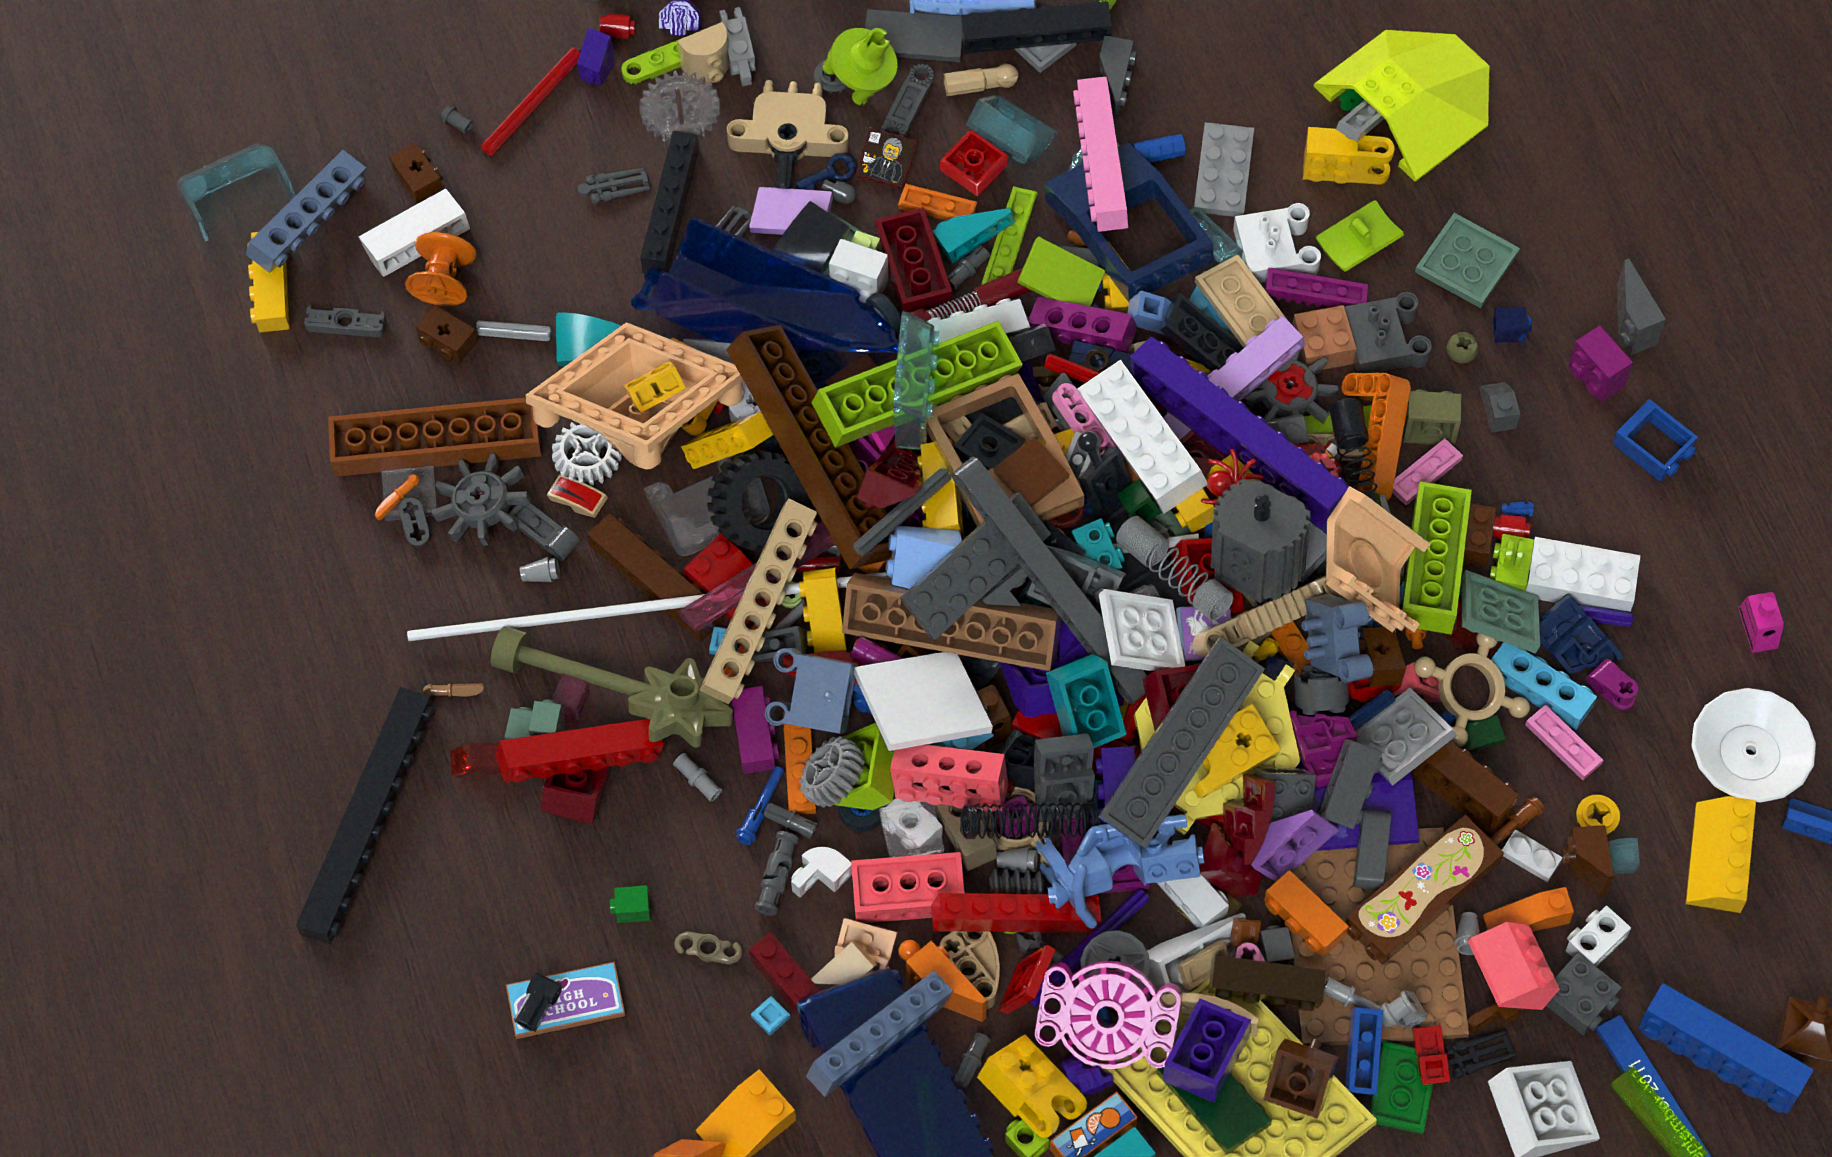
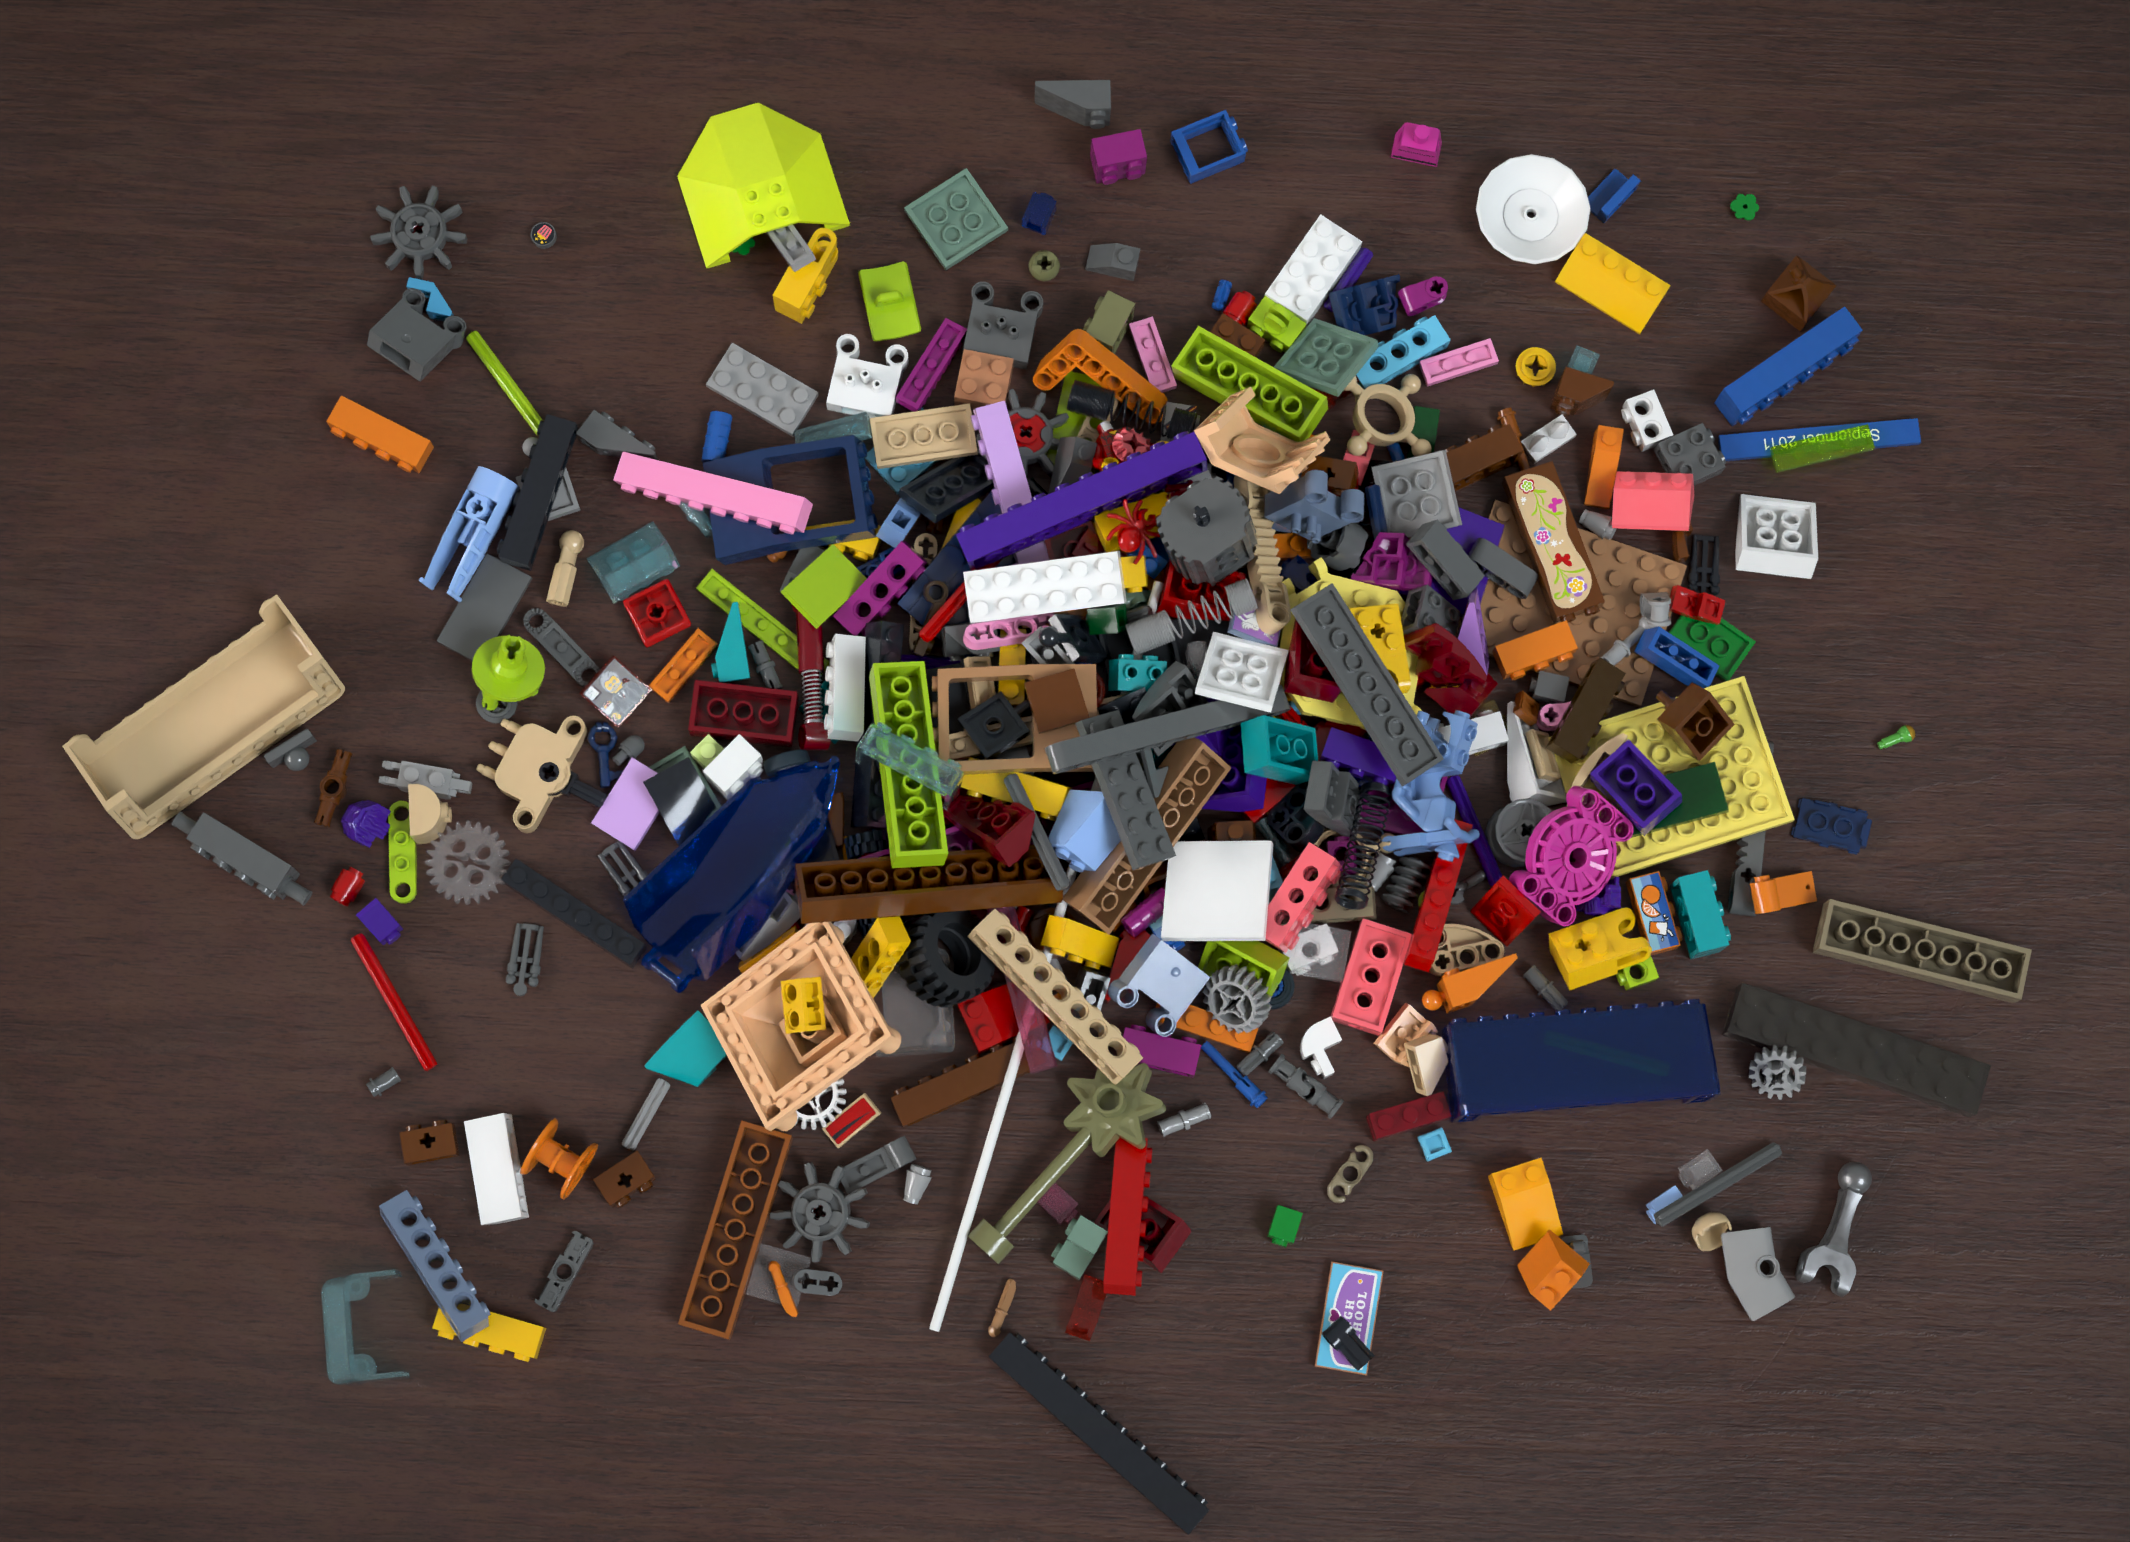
camera: 75 degrees left, 15 degrees up
(879, 1033) = (1524, 1057): sand blue brick -> none

